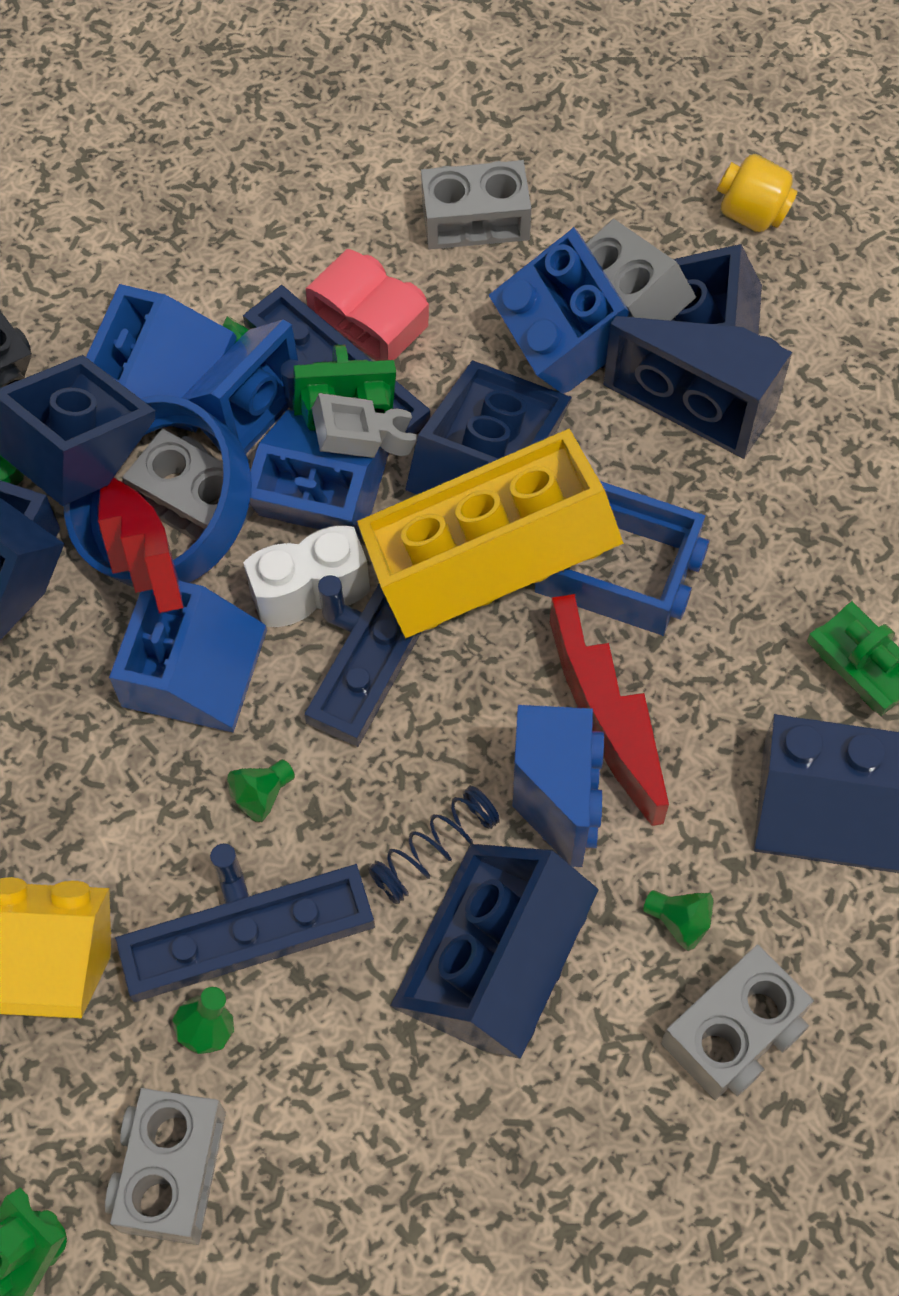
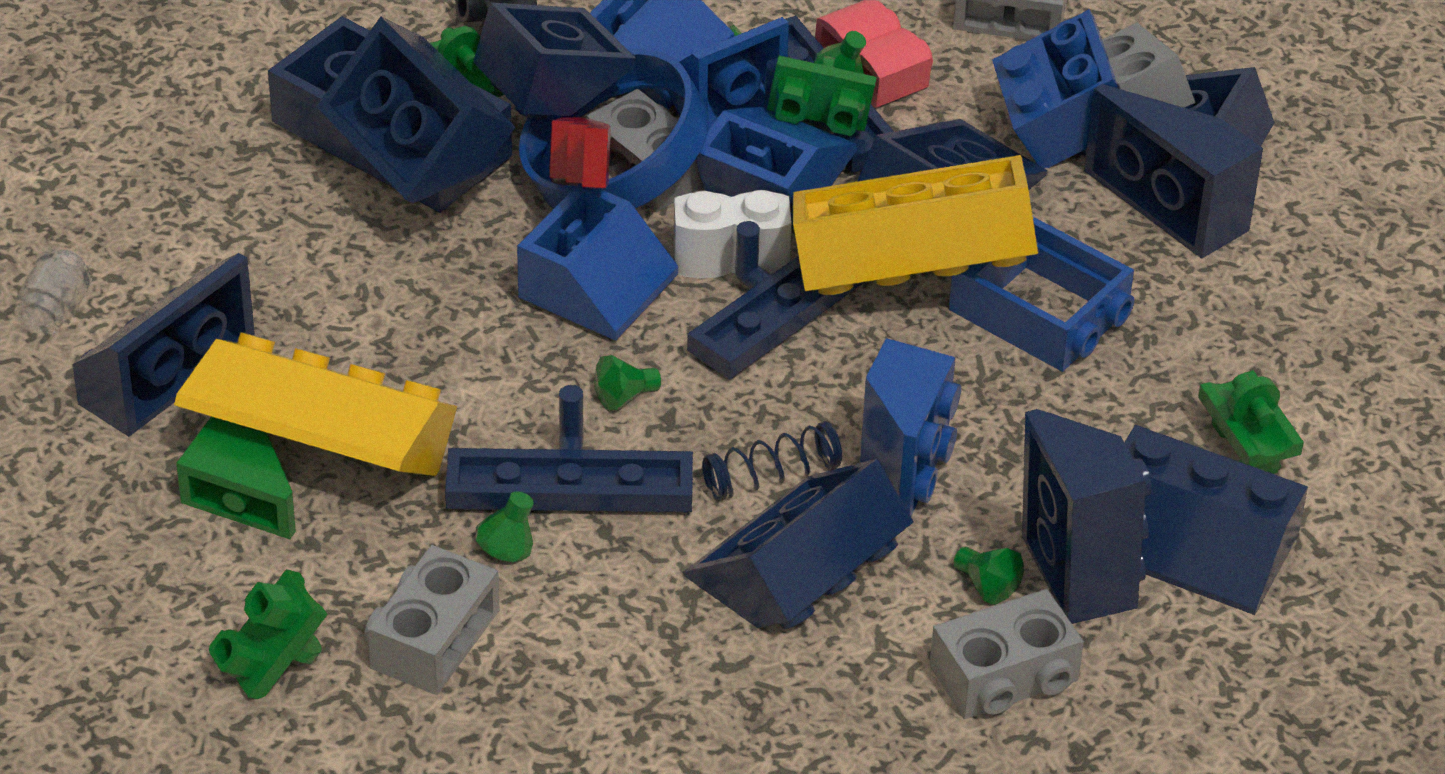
camera: 15 degrees right, 20 degrees down
(350, 333) = (845, 53): none -> green rock
(355, 428) = (820, 116): light grey plate -> none
(623, 719) = (984, 405): red slope -> none
(756, 193) = (1299, 49): yellow head -> none
(772, 857) = (1084, 515): none -> dark blue slope

